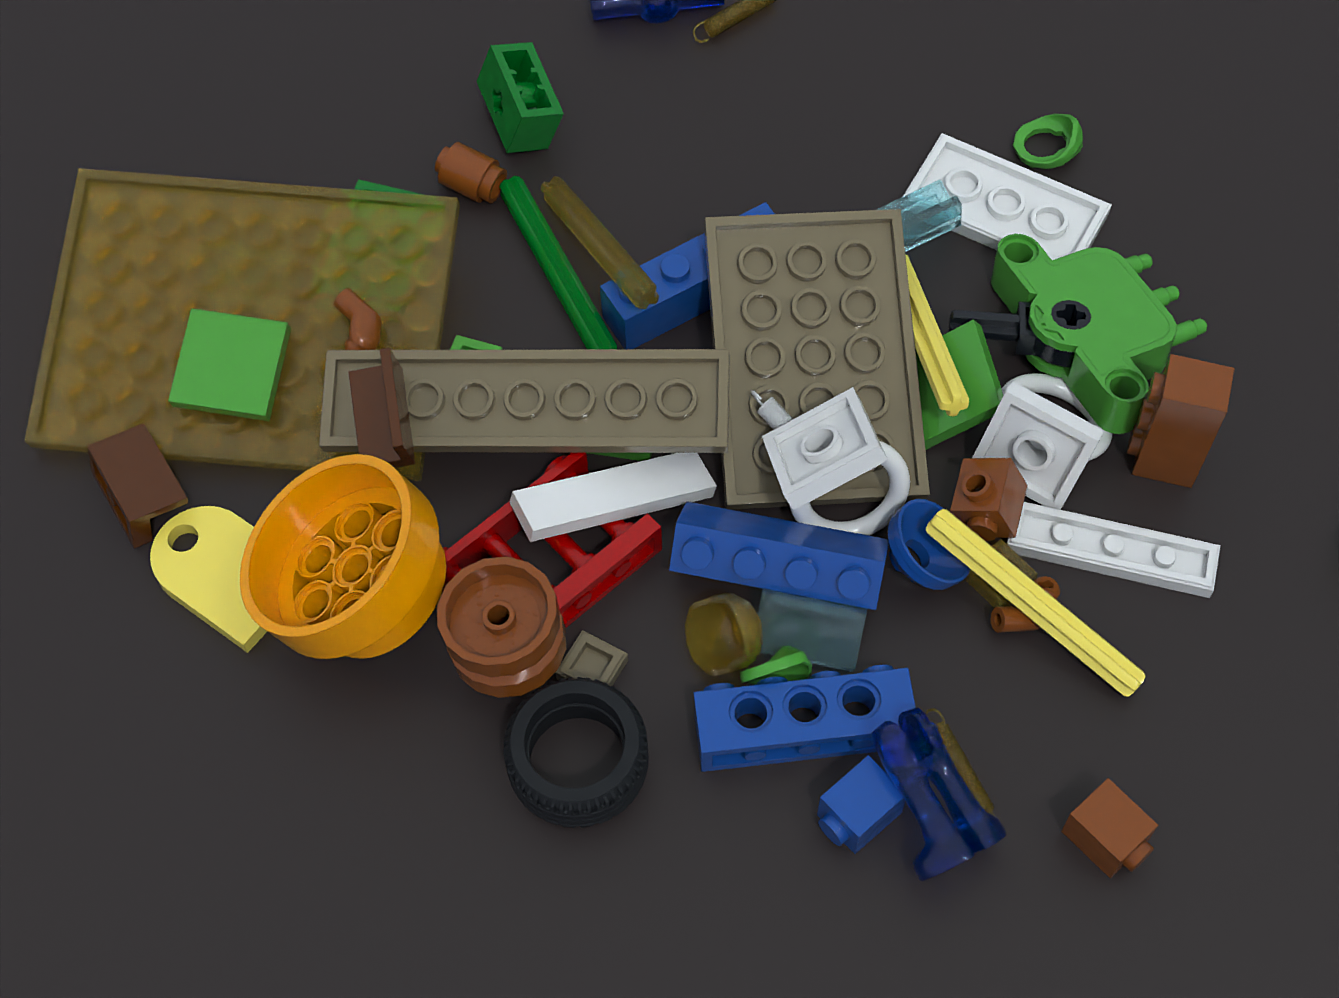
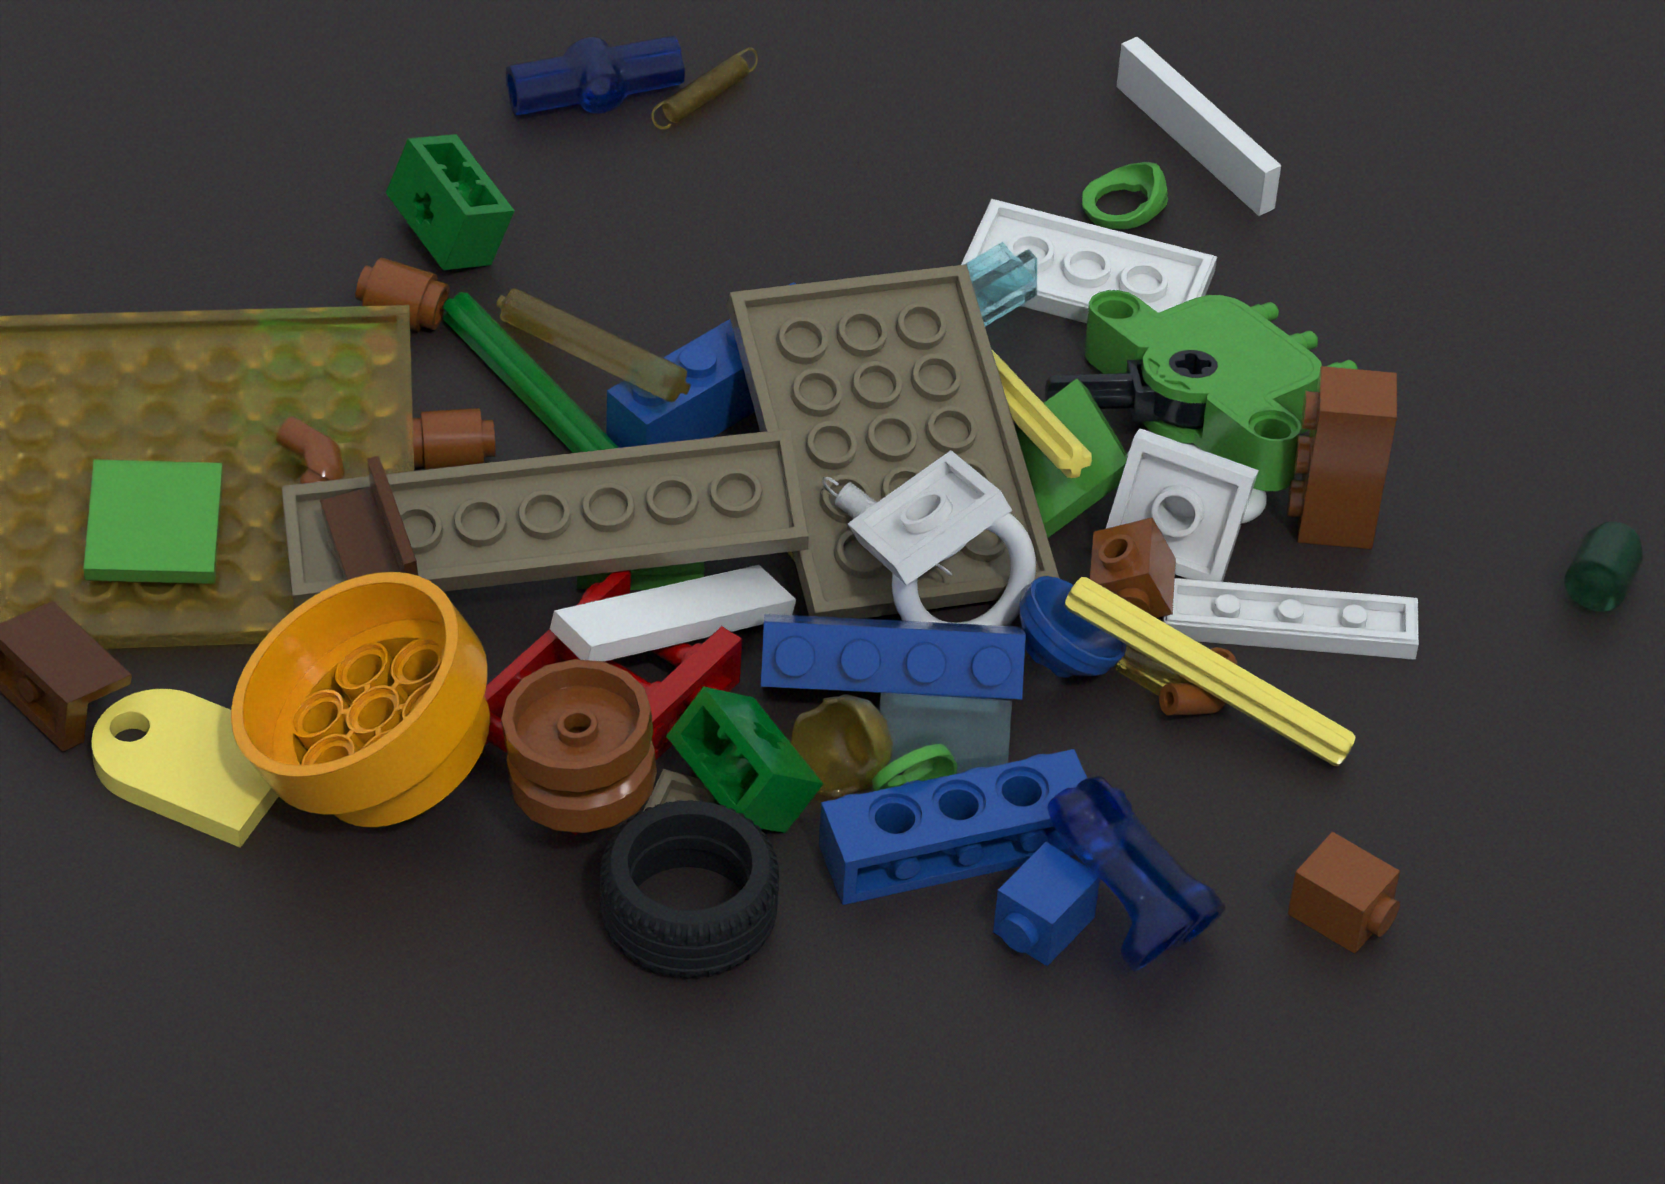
camera: 15 degrees left, 15 degrees down
(478, 308) = (452, 438): none -> dark orange brick
(642, 638) = (744, 758): none -> green brick
(1118, 85) = (1198, 126): none -> white tile

